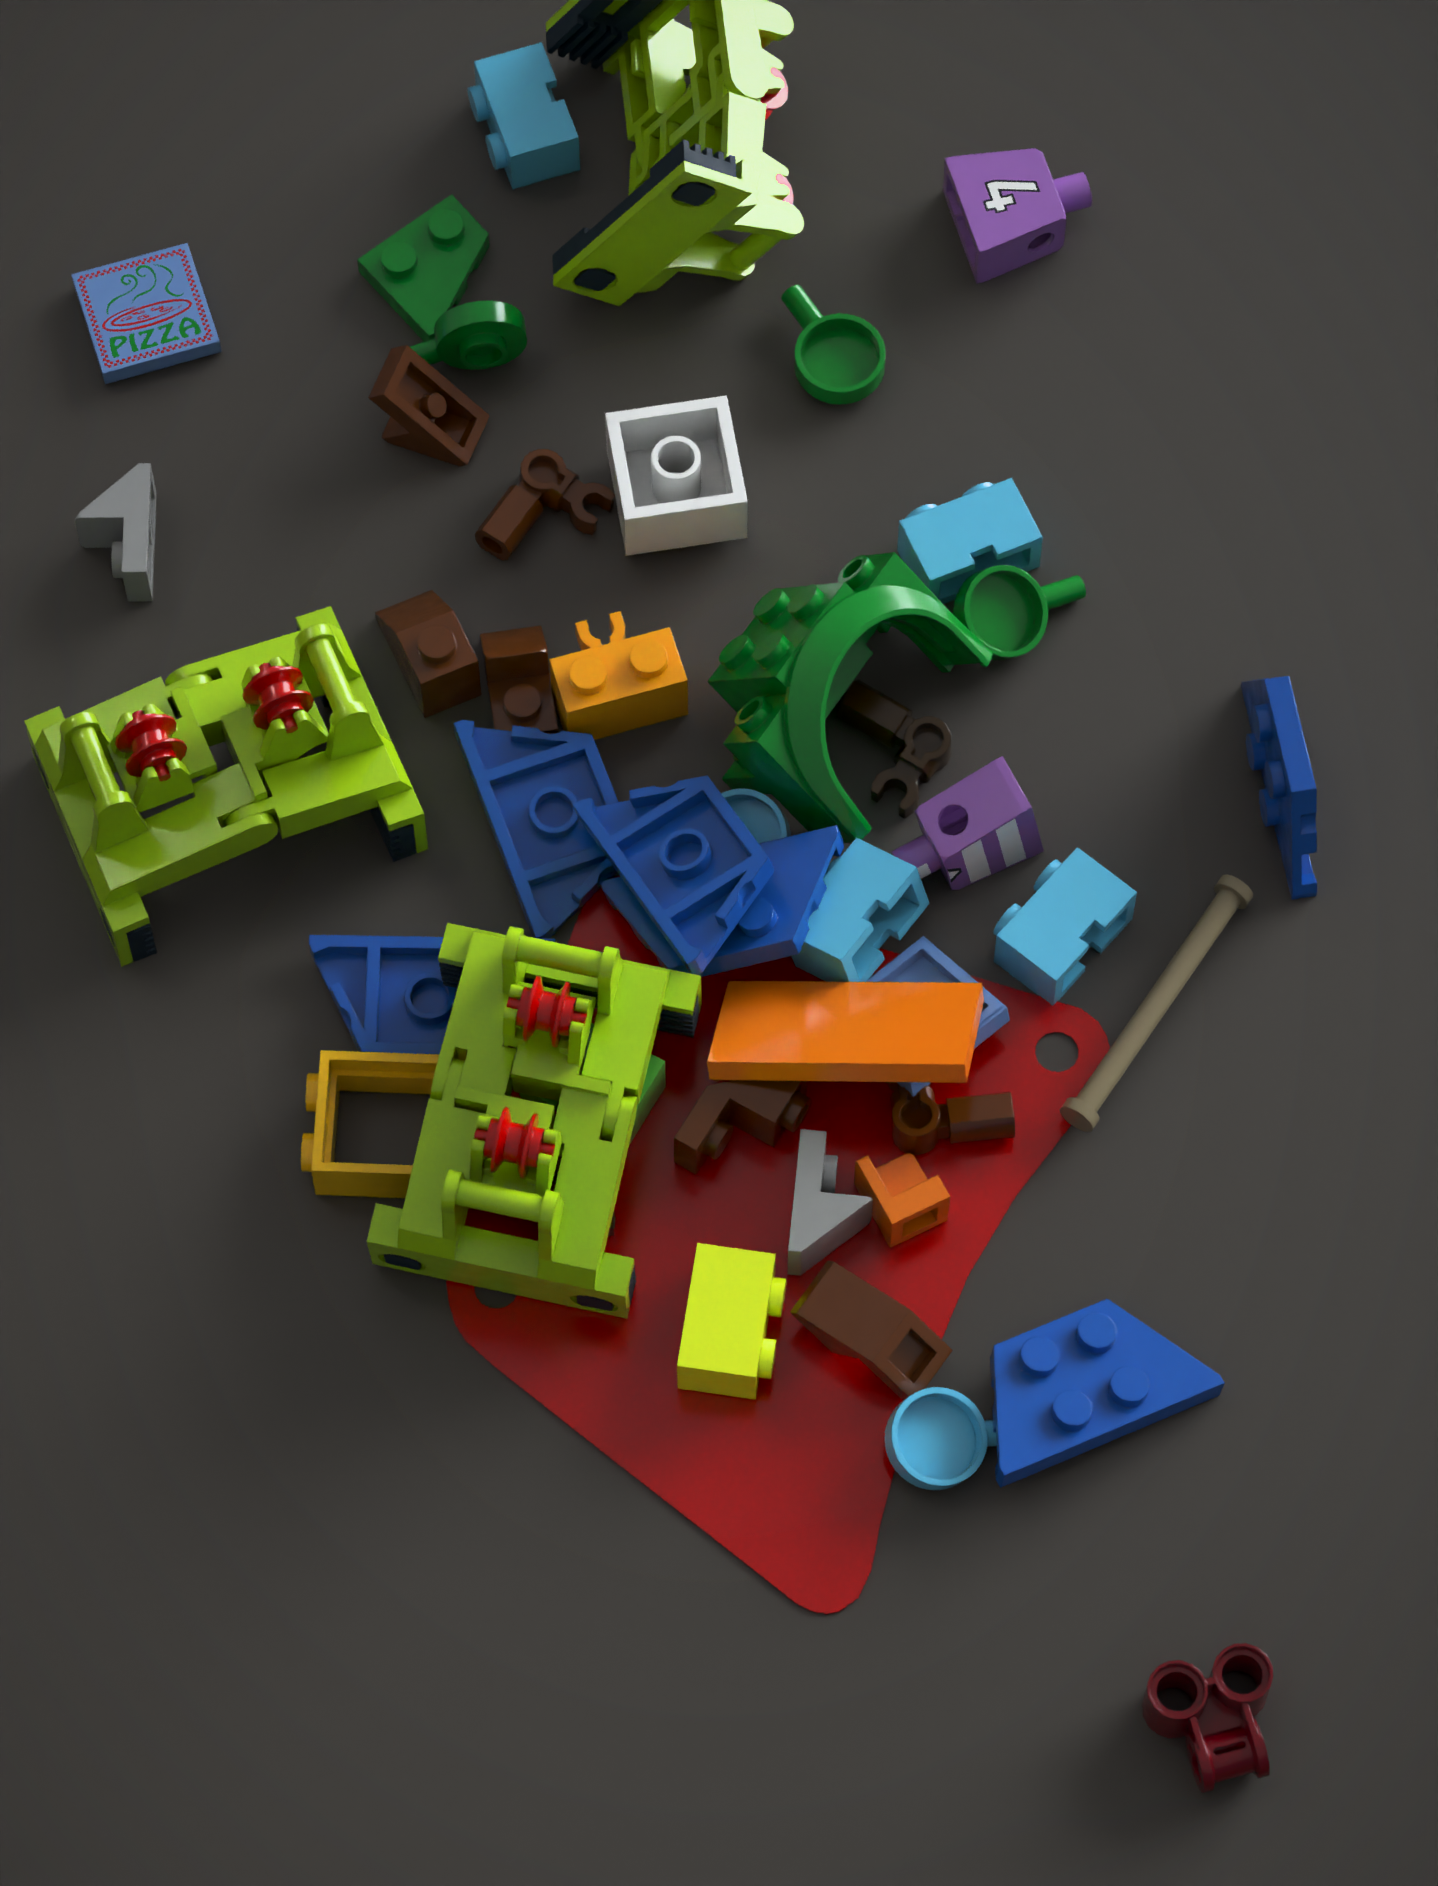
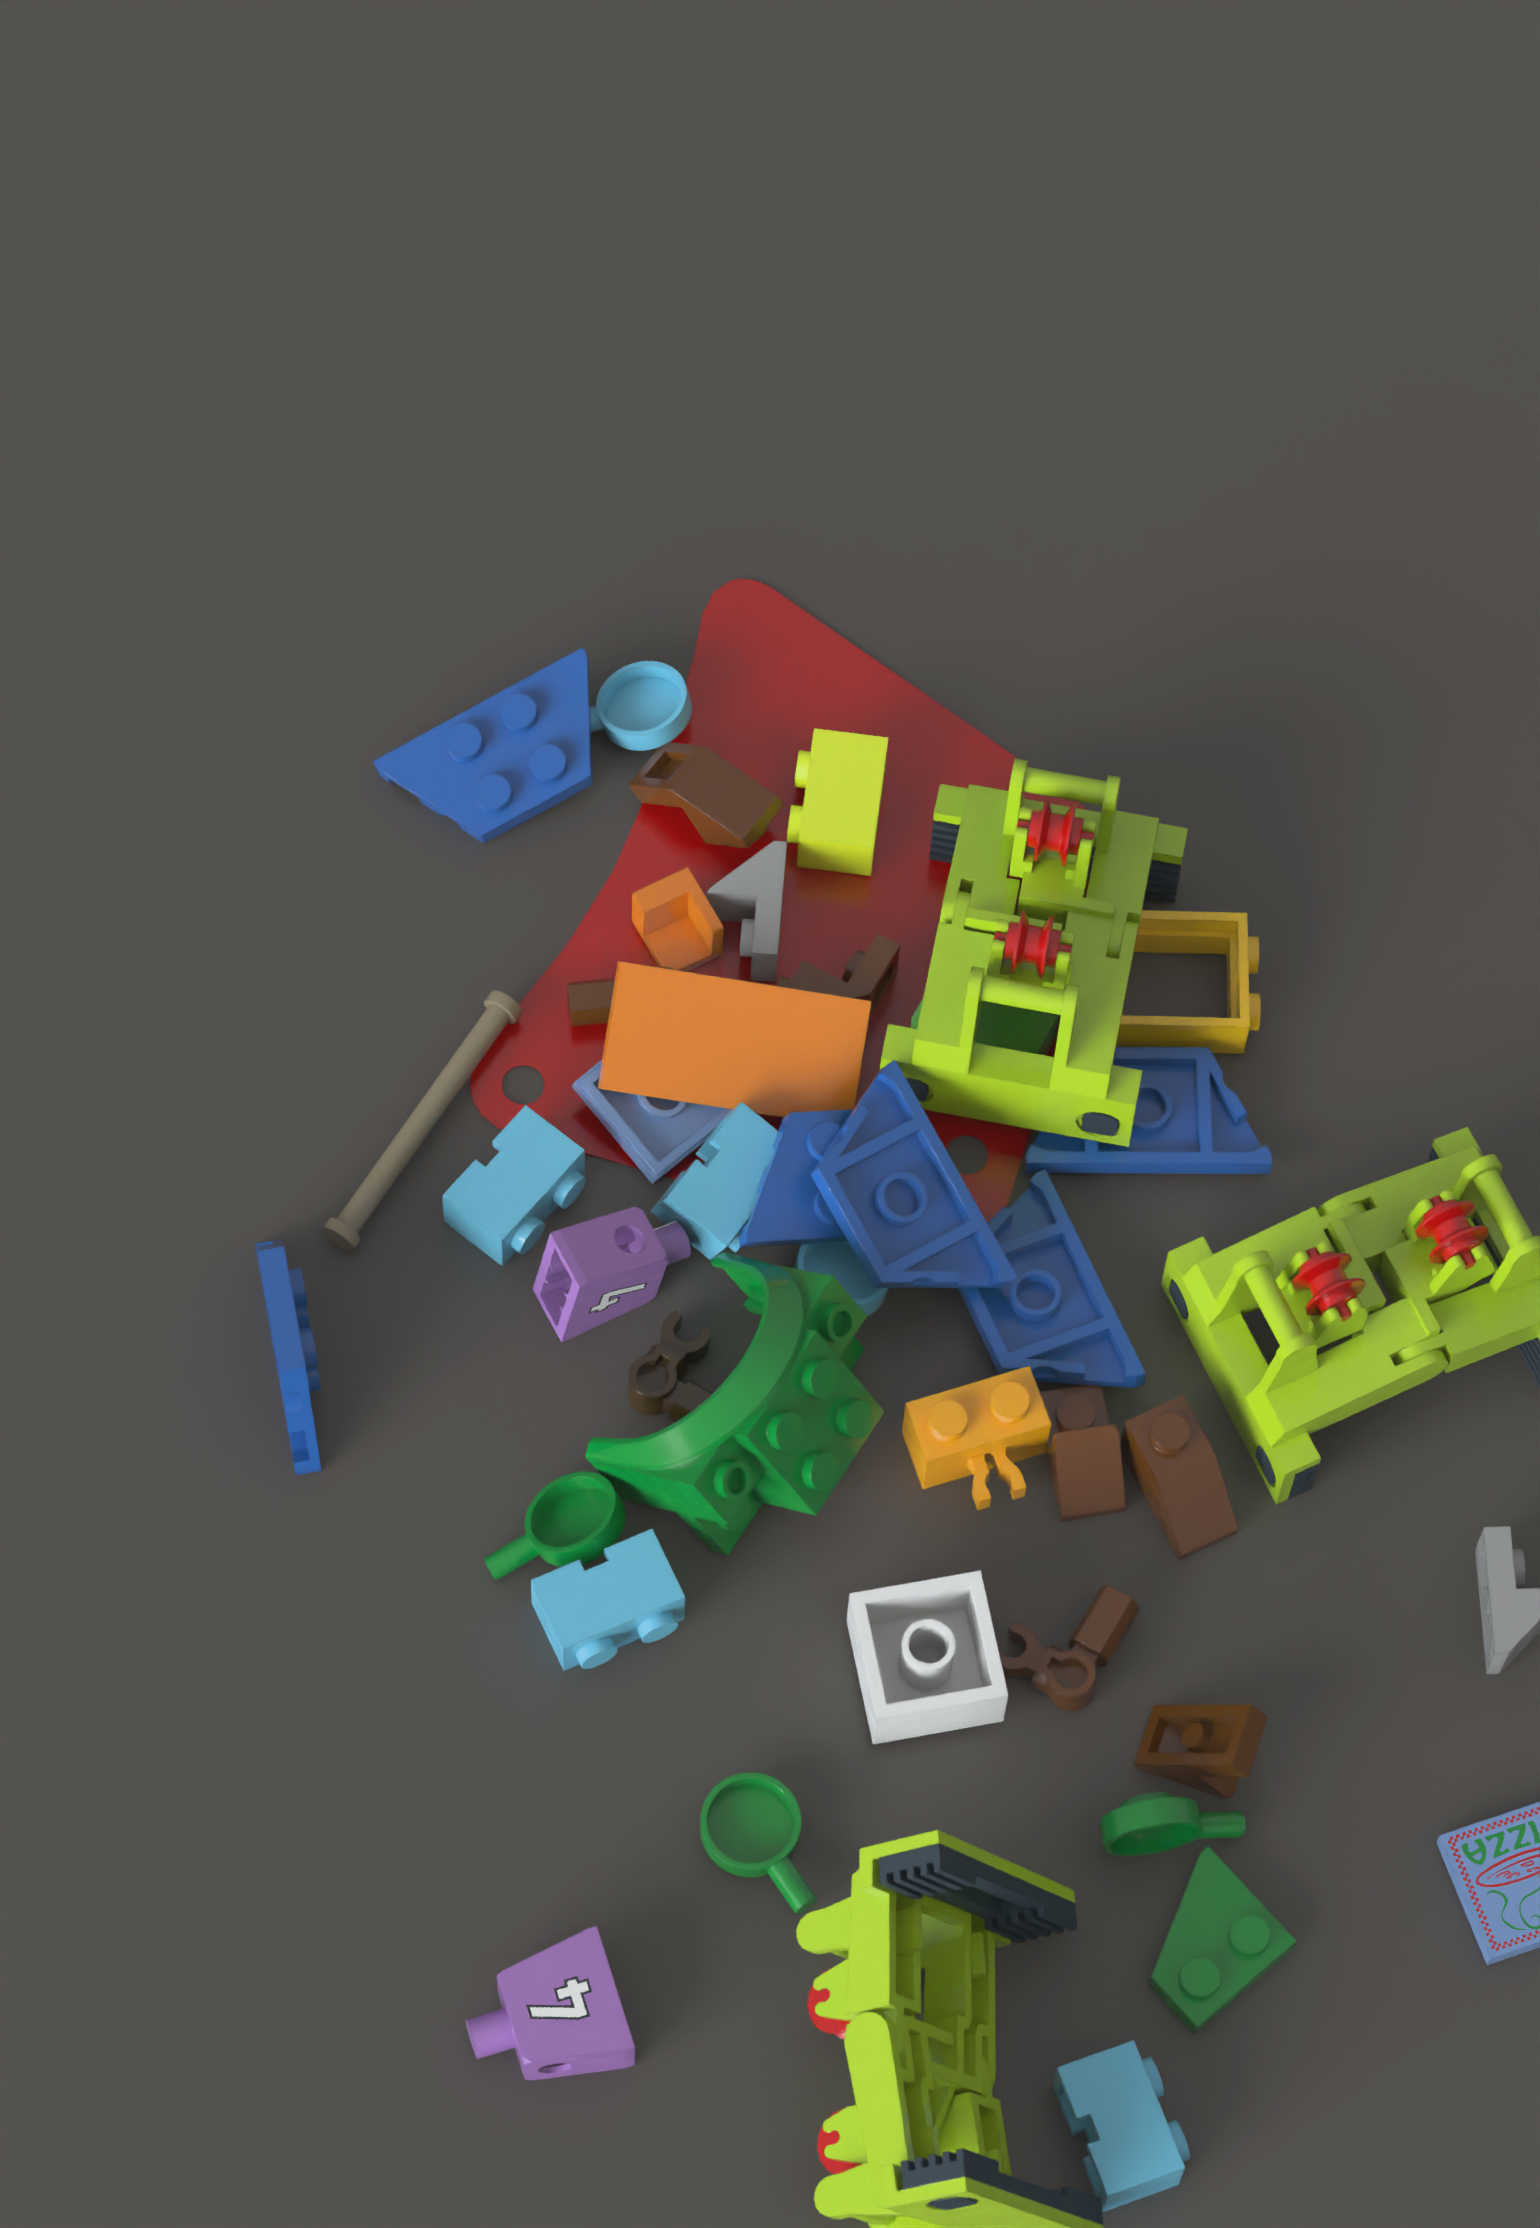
camera: 175 degrees right, 0 degrees up
(1220, 1724) = (393, 474): dark red piece -> none

